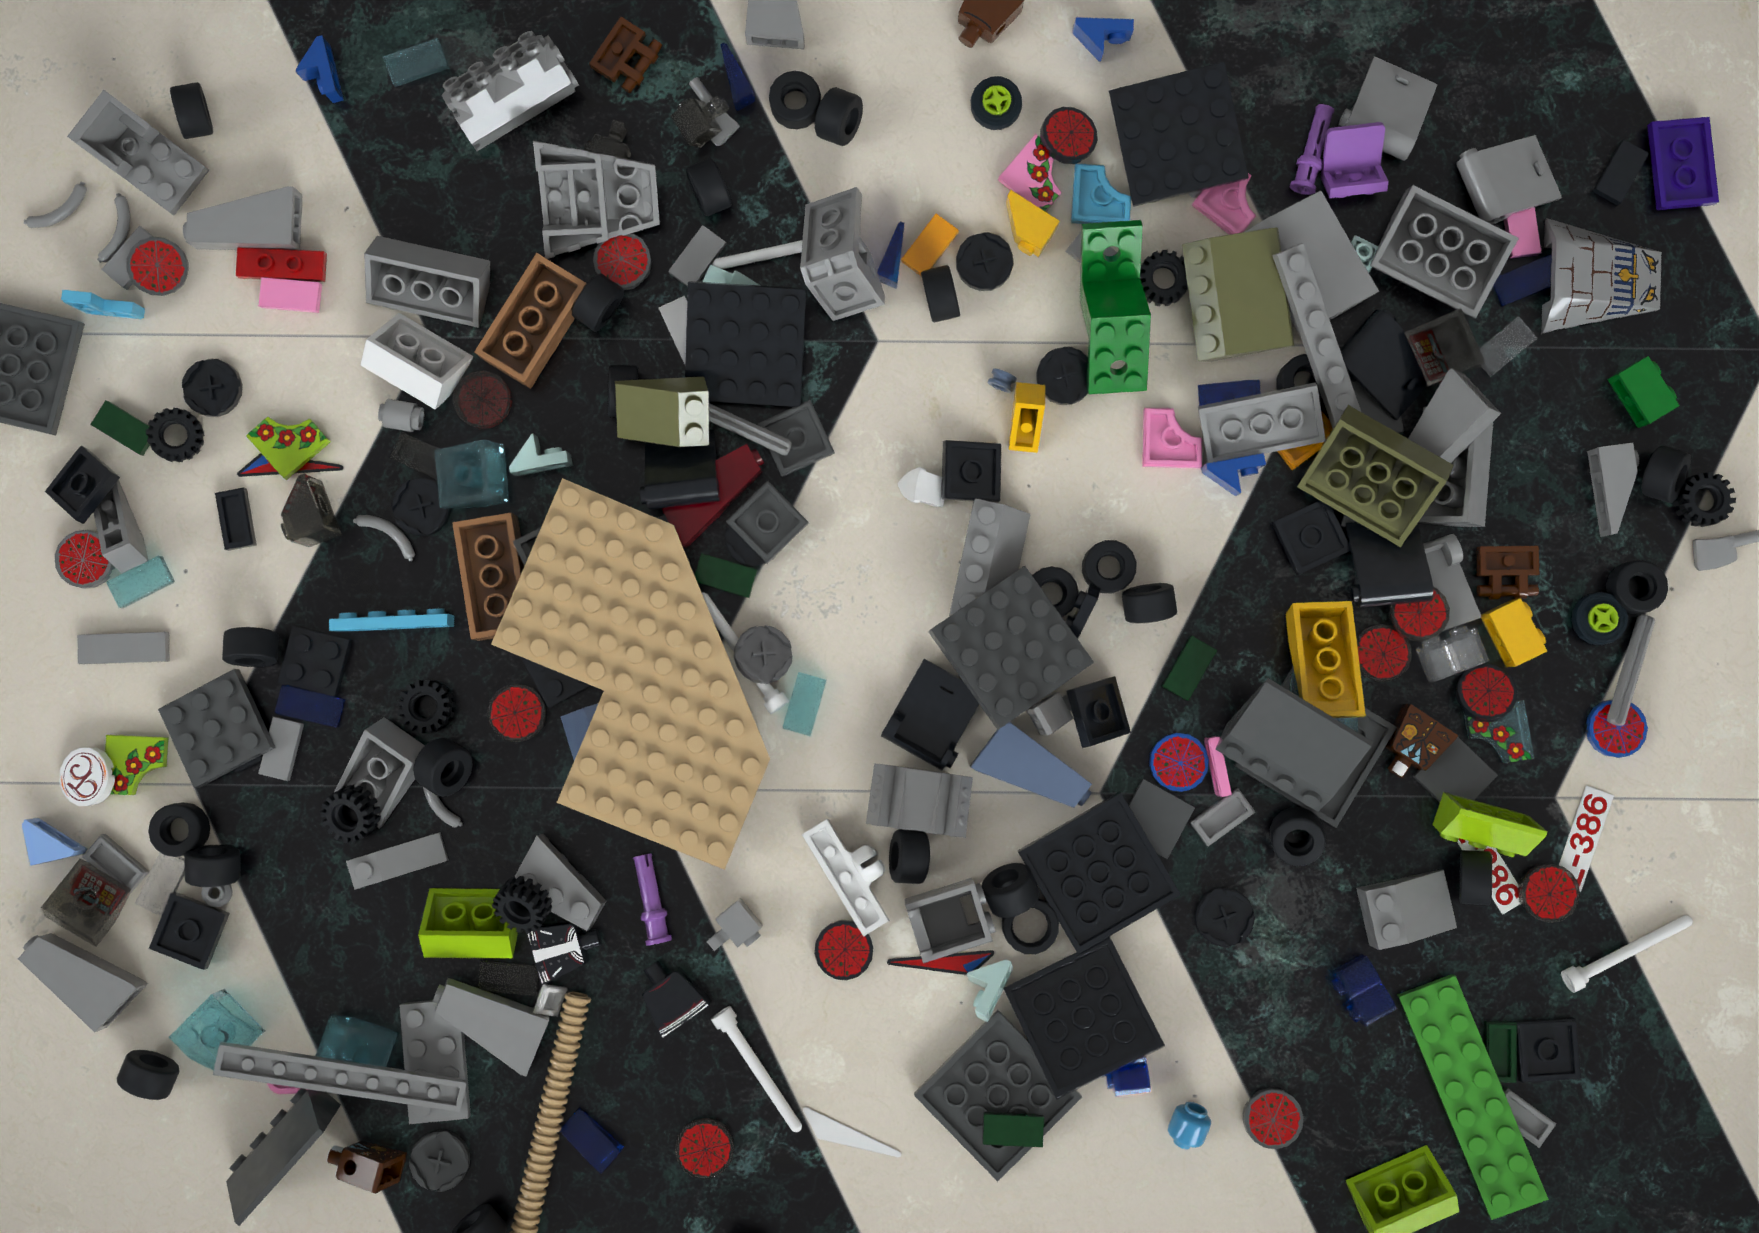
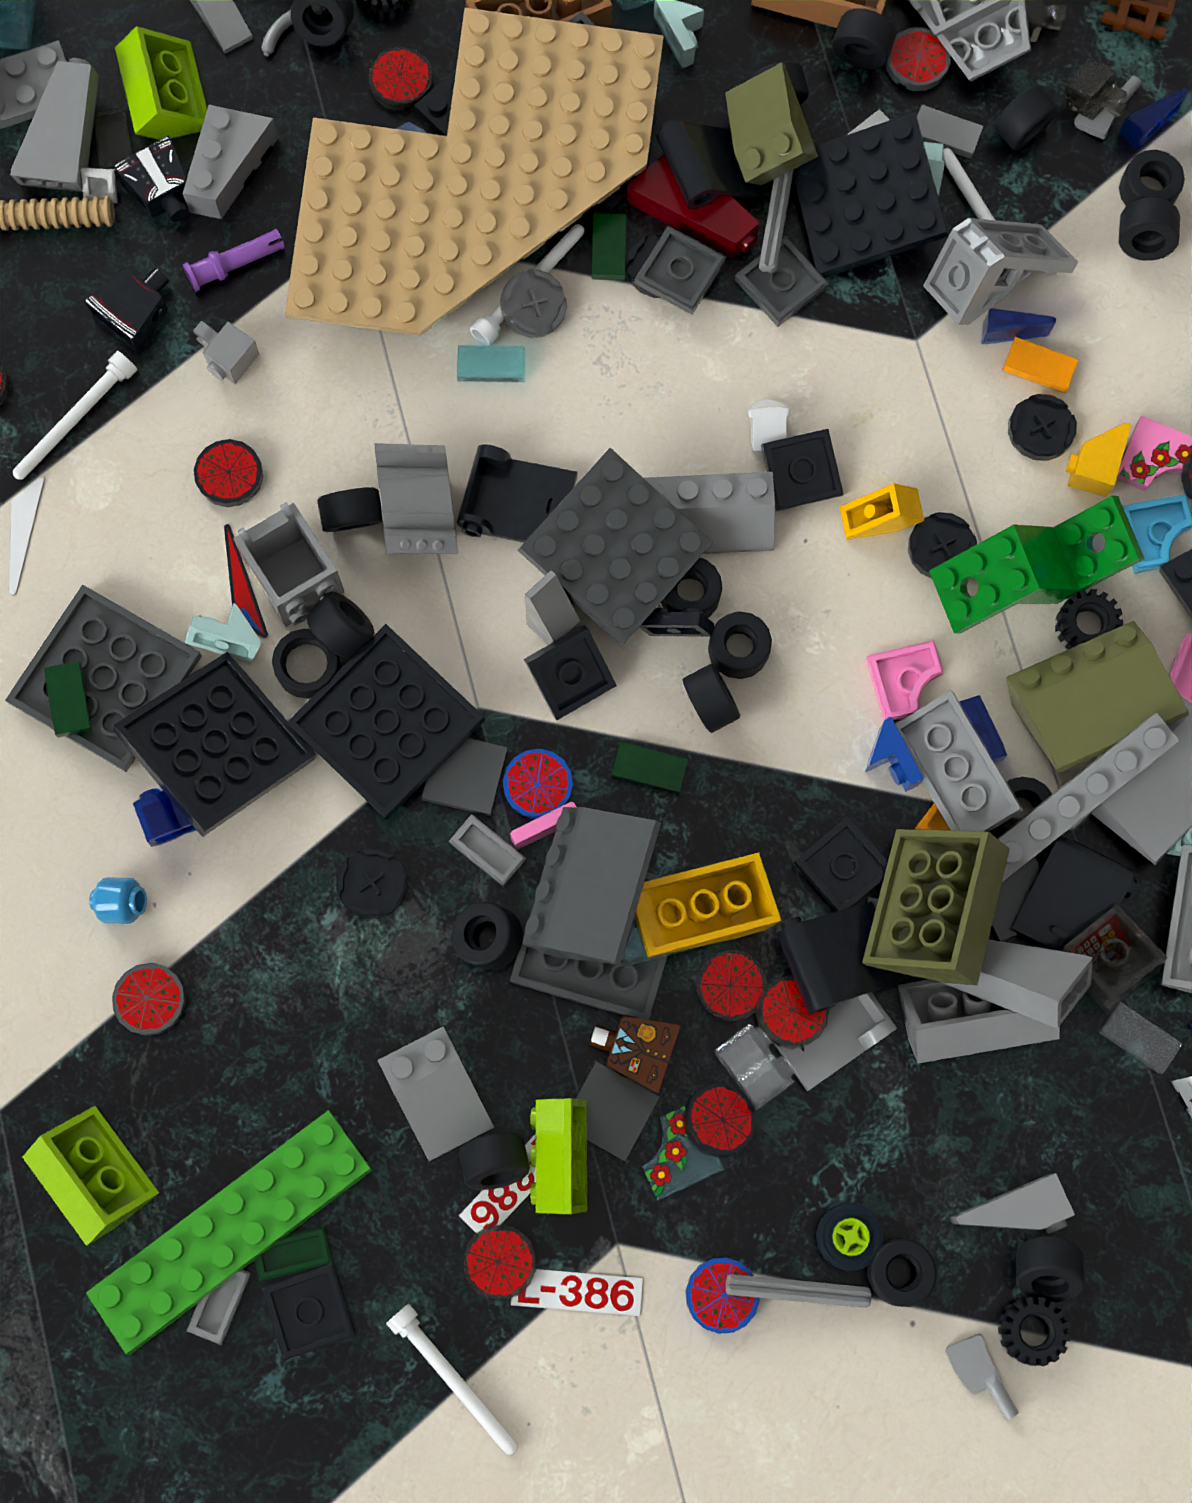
camera: 70 degrees right, 10 degrees down
(525, 917) = (194, 117): black tyre -> none
(849, 875) = (313, 454): white plate -> none
(940, 293) = (989, 381): black tyre -> none
(1002, 380) = (915, 475): sand blue bush -> none
(1026, 764) = (488, 613): sand blue slope -> none
(1363, 989) = (325, 1063): clear blue brick -> none
(1507, 561) = (884, 1107): reddish brown plate -> none
(1514, 632) = (802, 1134): yellow brick -> none
(1644, 392) = (1142, 1219): green brick -> none

